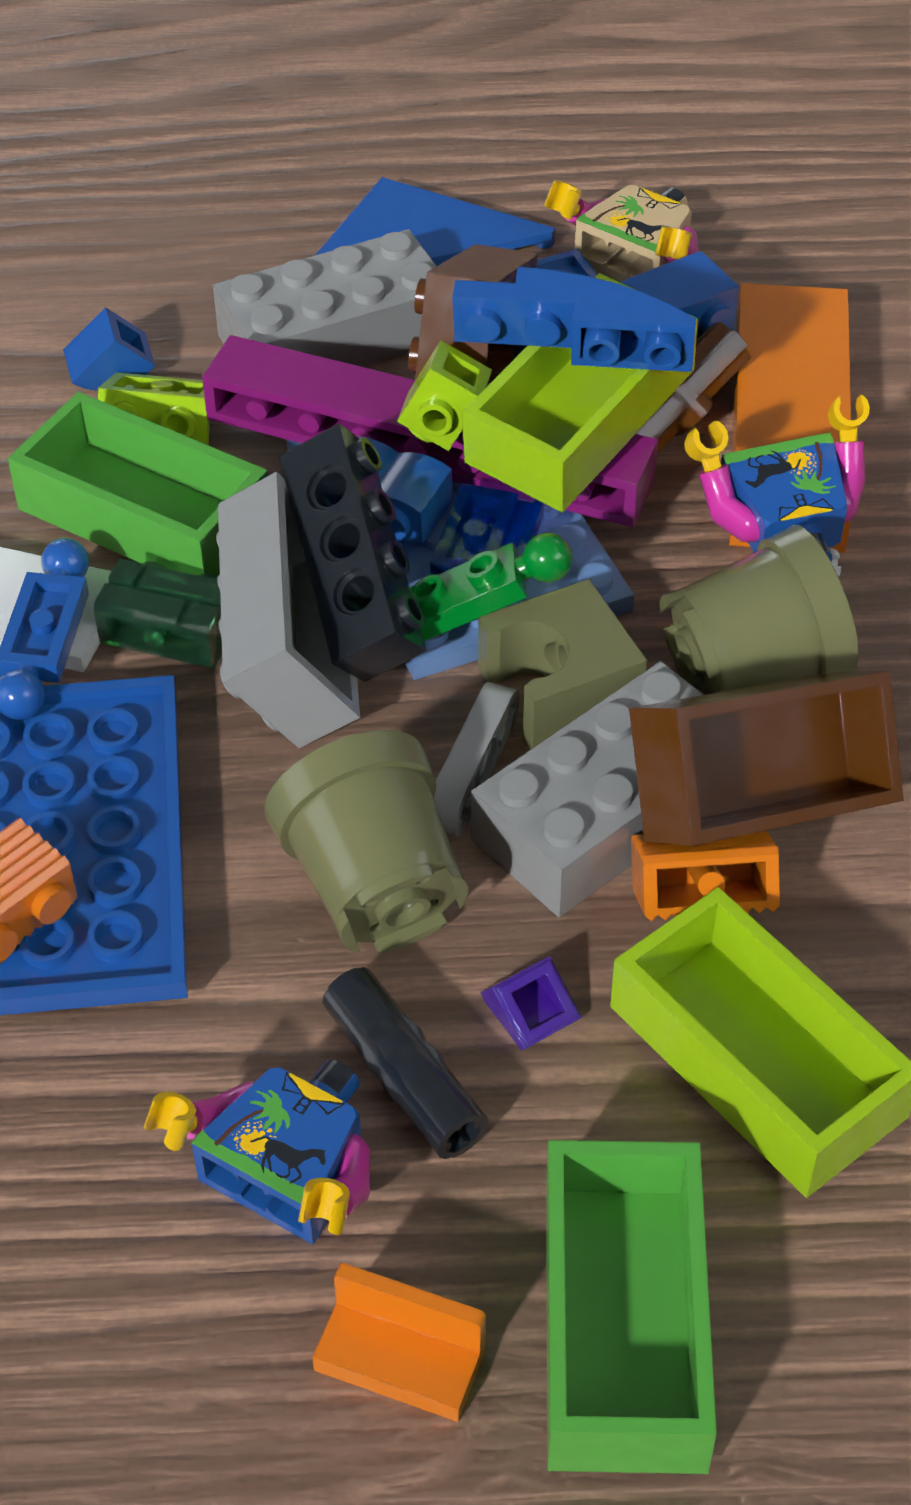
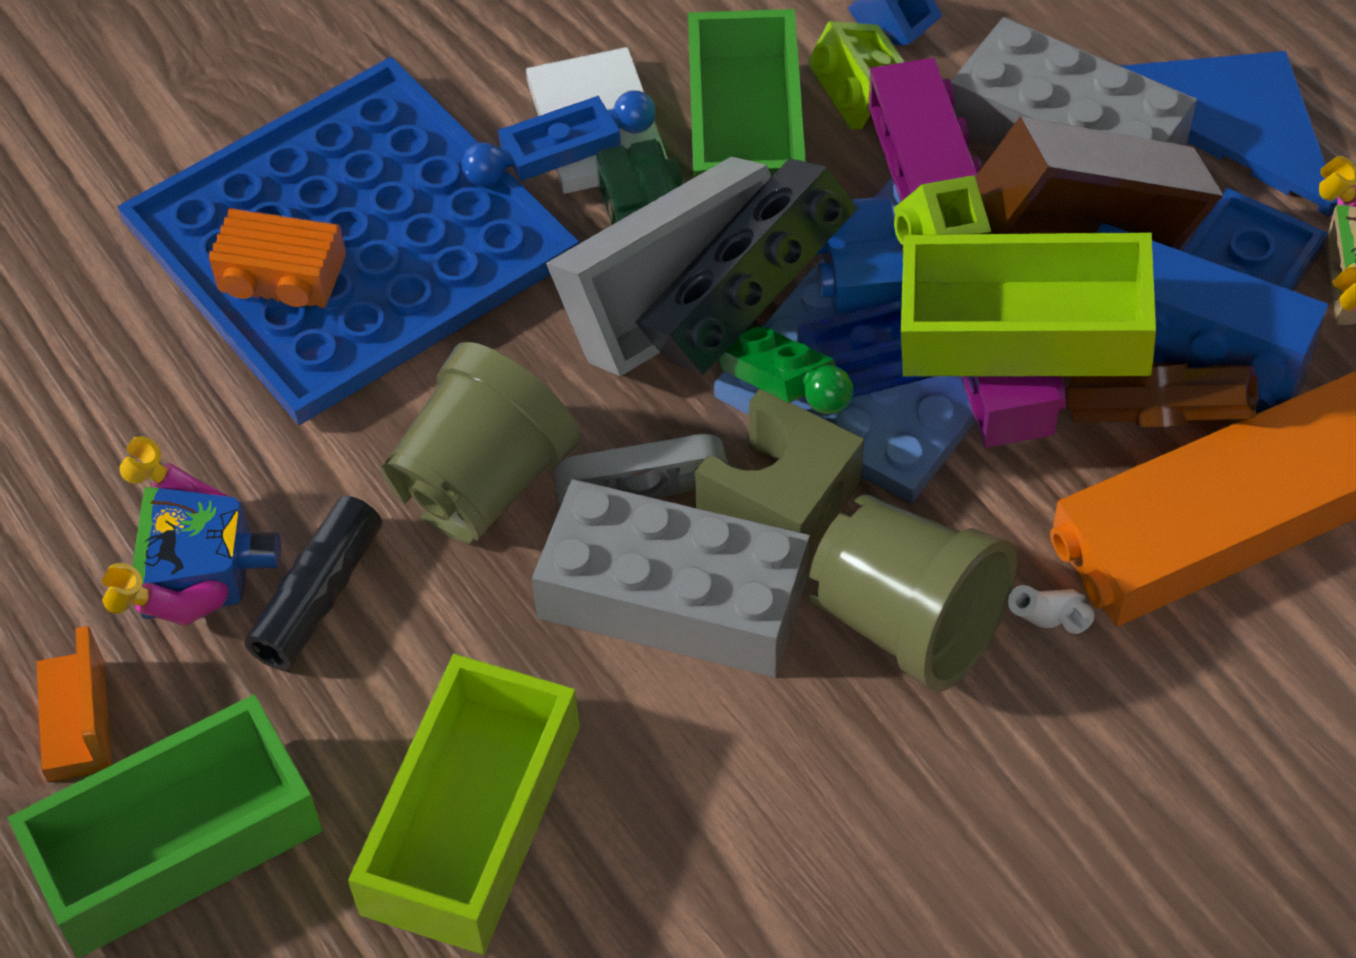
camera: 60 degrees right, 5 degrees up
(532, 1003) = (431, 637): dark purple slope -> none
(590, 315) = (1055, 241): blue slope -> none
(677, 876) = (618, 683): orange brick -> none
(765, 756) = (735, 655): reddish brown piece -> none
(786, 482) = (1075, 525): torso -> none

